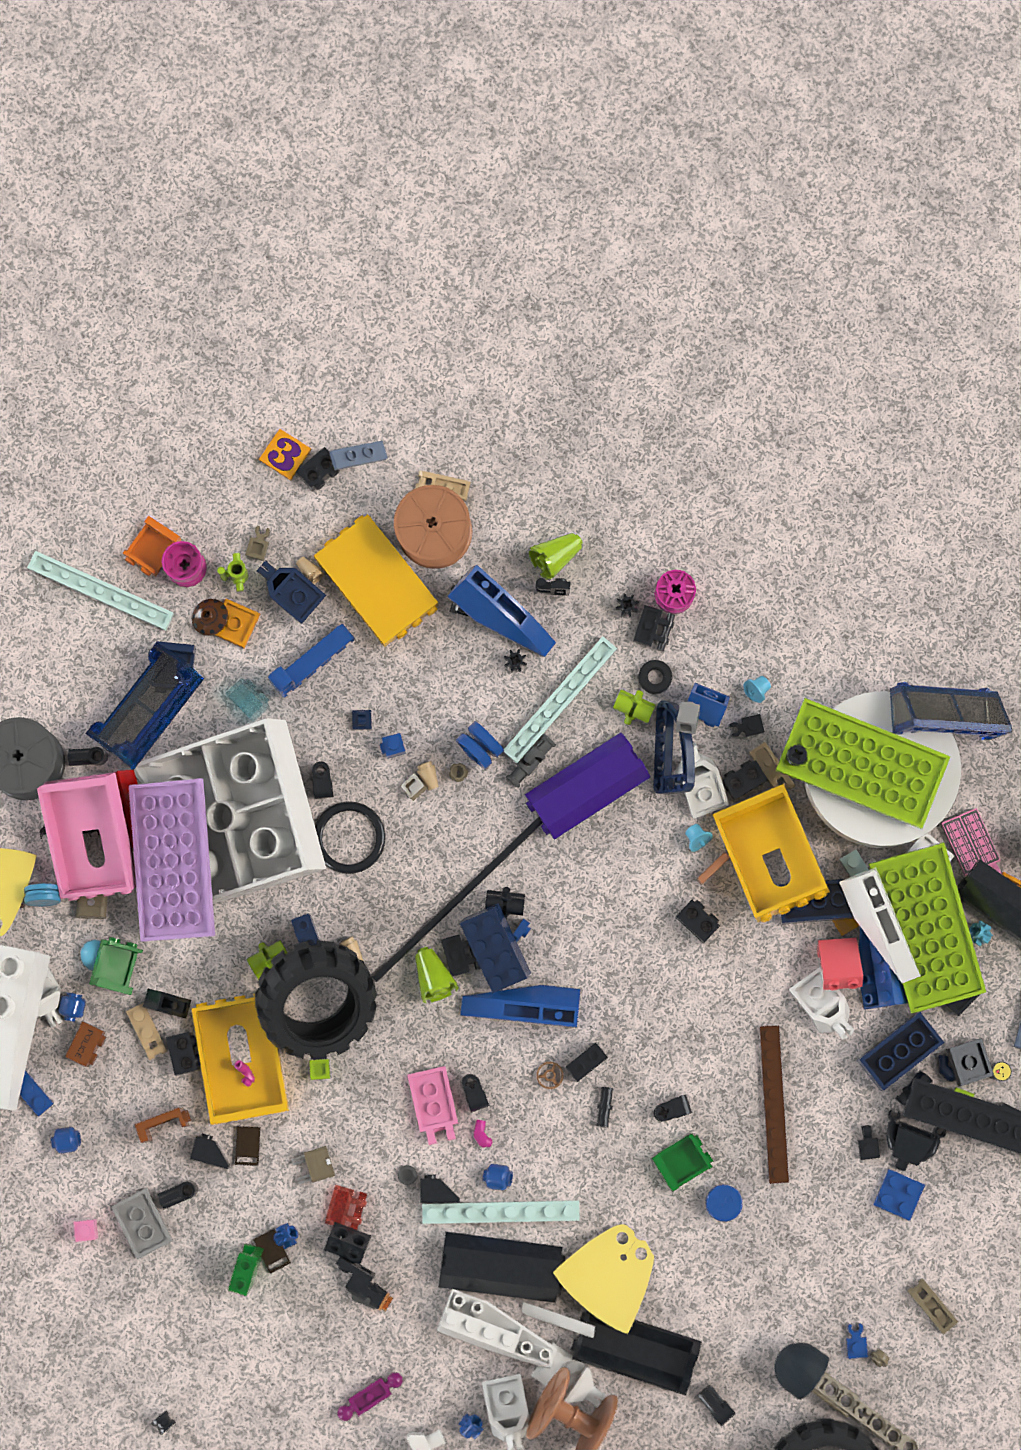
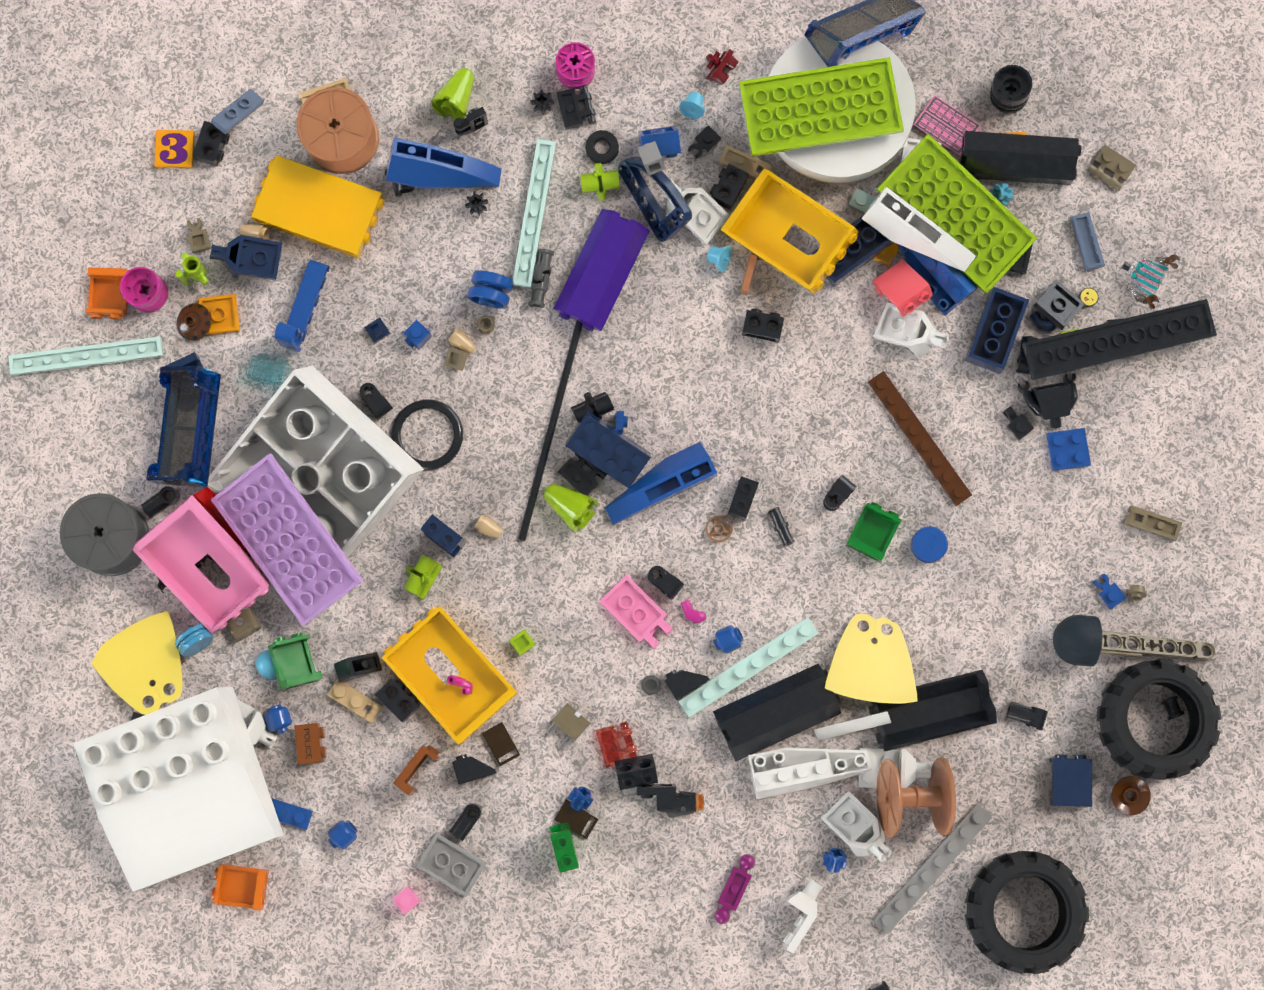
camera: 30 degrees left, 0 degrees up
(329, 1034) = (514, 604): black tyre -> none
(795, 758) = (764, 134): black wheel -> none
(810, 665) = (725, 59): none -> dark red hips

